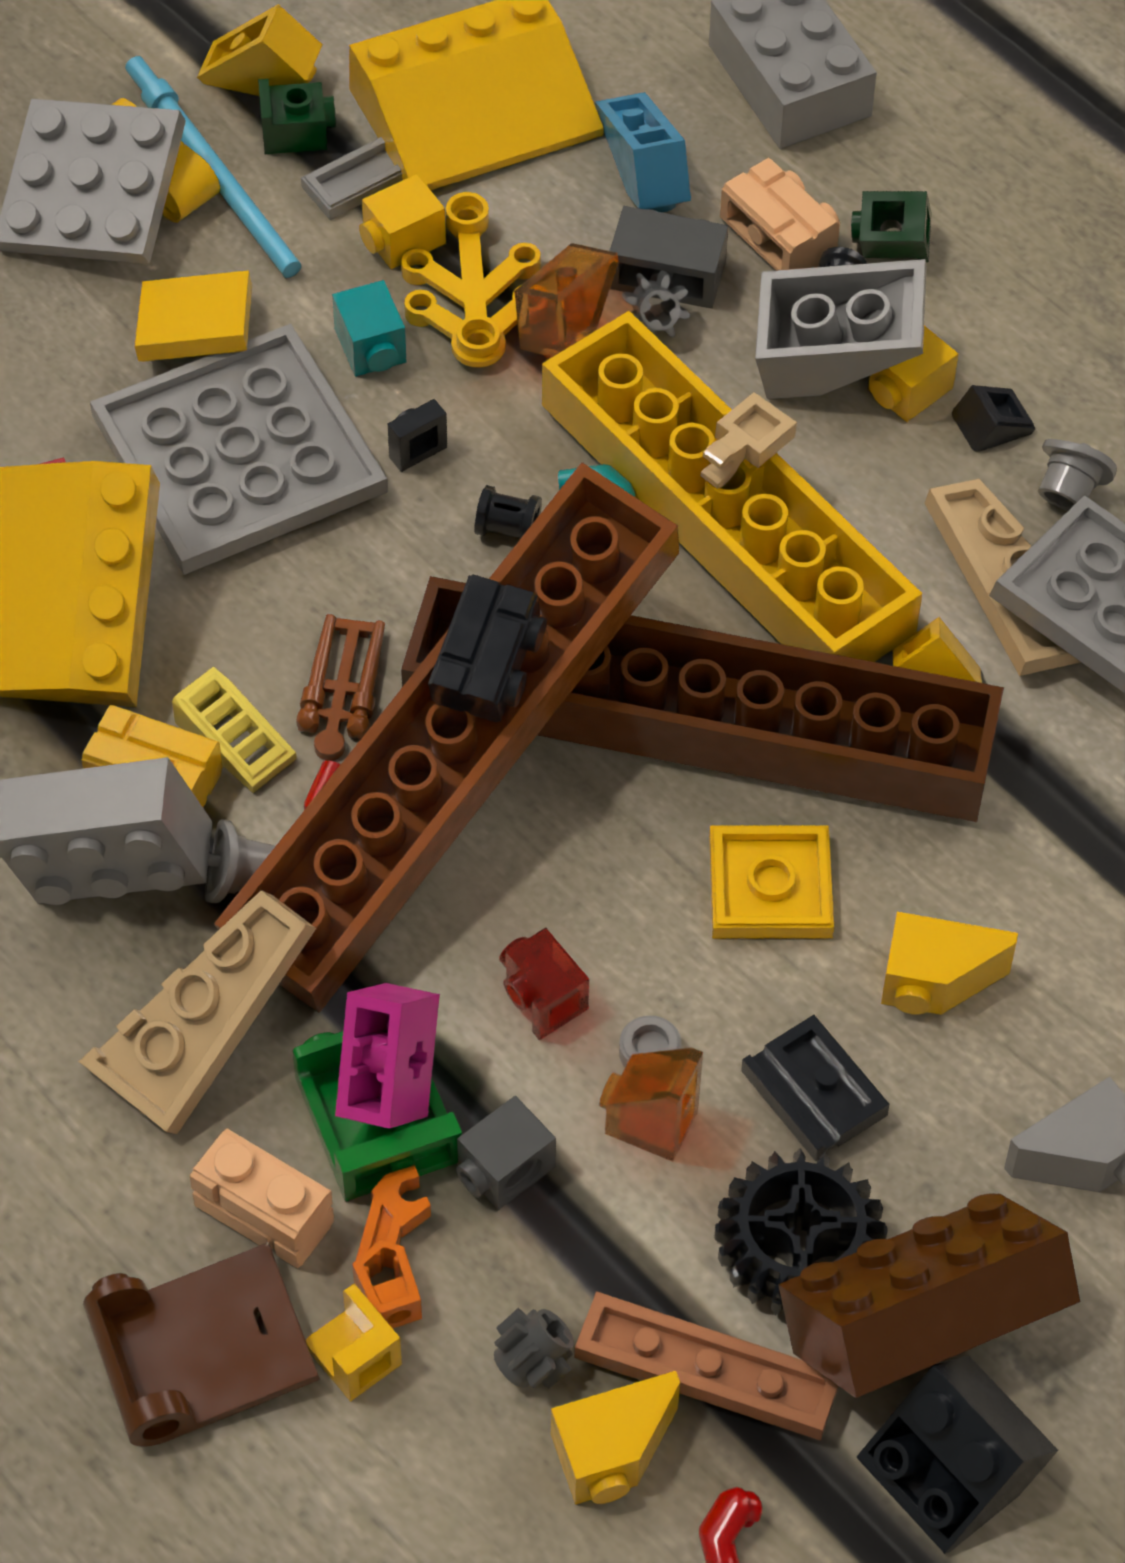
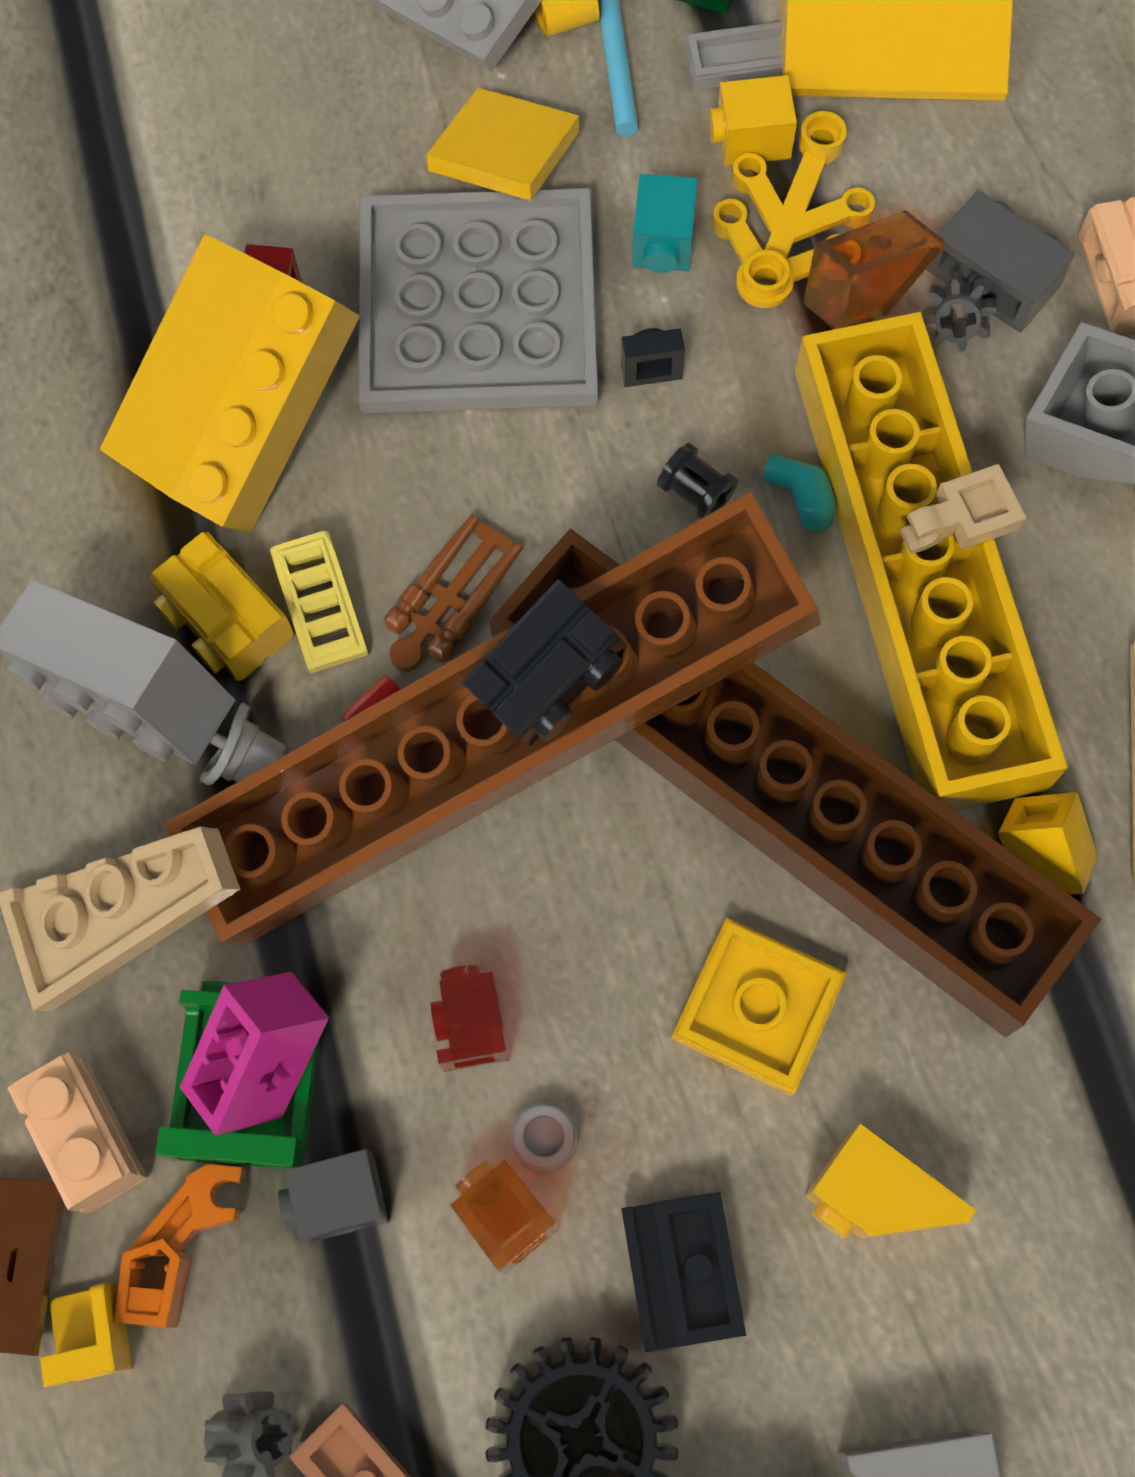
camera: 30 degrees right, 15 degrees up
(646, 151) = (1034, 136): dark azure slope -> none

